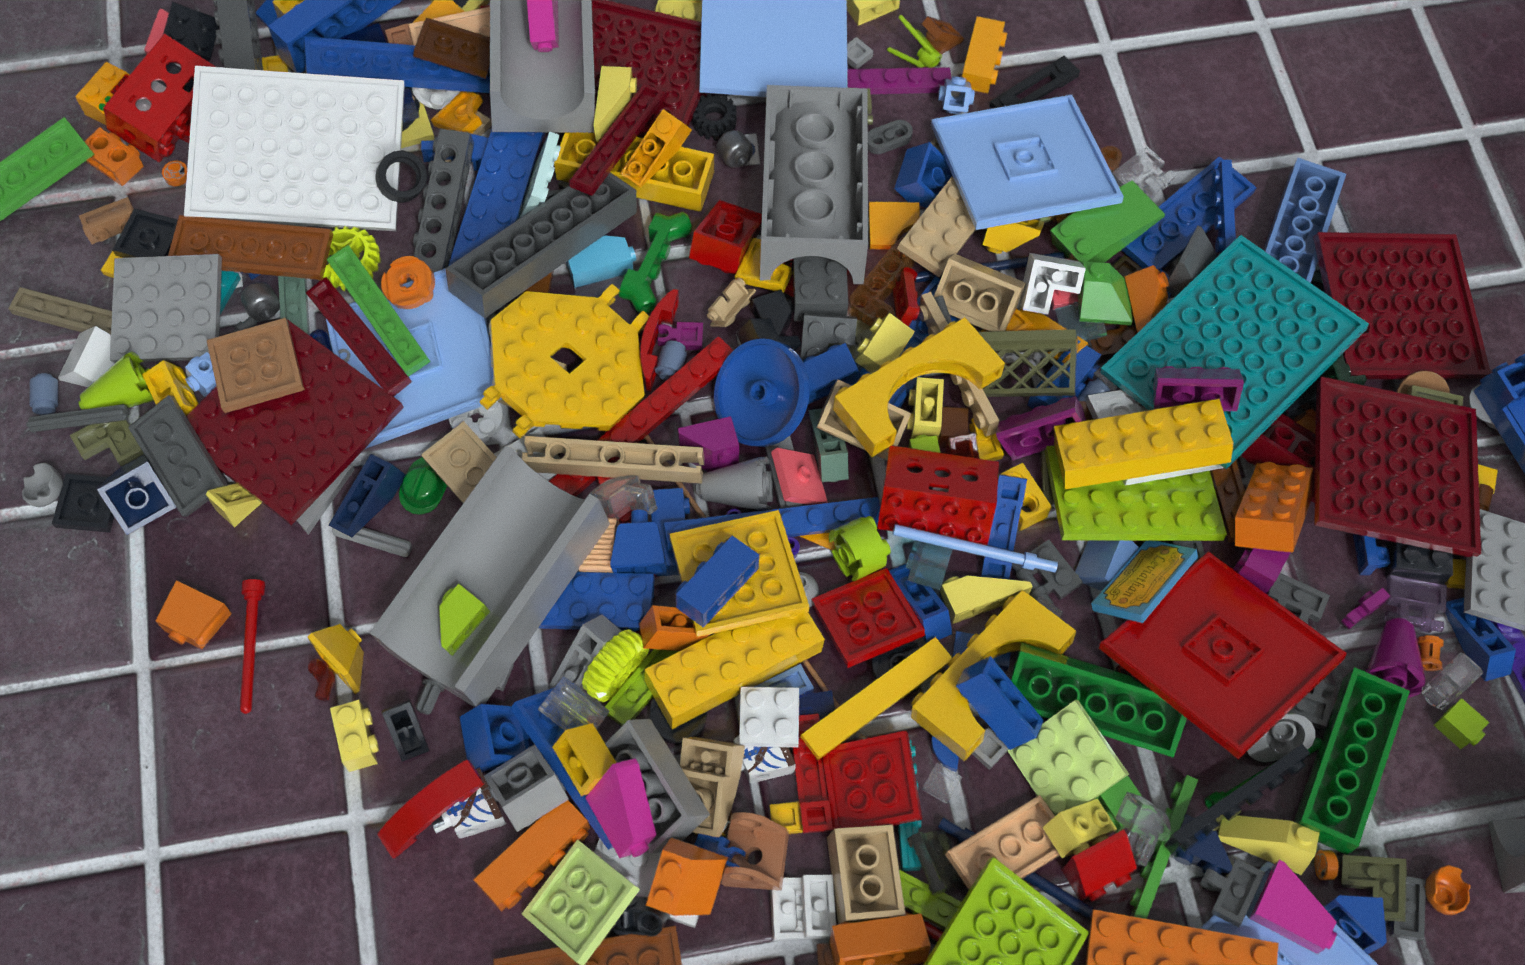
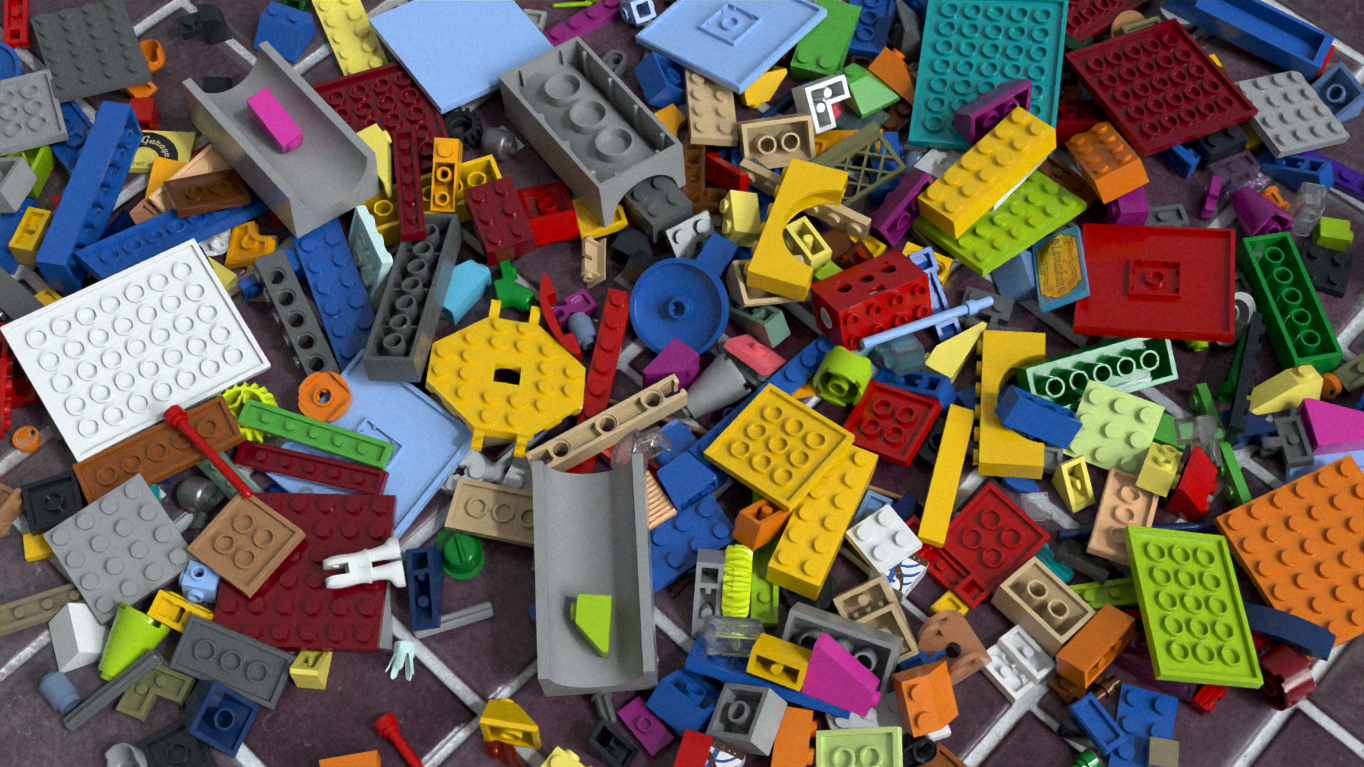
camera: 35 degrees left, 5 degrees down
(279, 226) = (177, 418): none -> red piece
(310, 536) = (402, 652): none -> light aqua piece
(323, 446) = (360, 569): none -> white piece
(409, 159) = (256, 302): black tyre -> none
(448, 736) = (645, 727): none -> magenta plate
(668, 217) = (499, 220): none -> dark red brick
(717, 580) = (774, 459): blue brick -> none
(992, 787) = (1074, 484): none -> light yellow slope
(1426, 752) = (1327, 268): none -> black plate

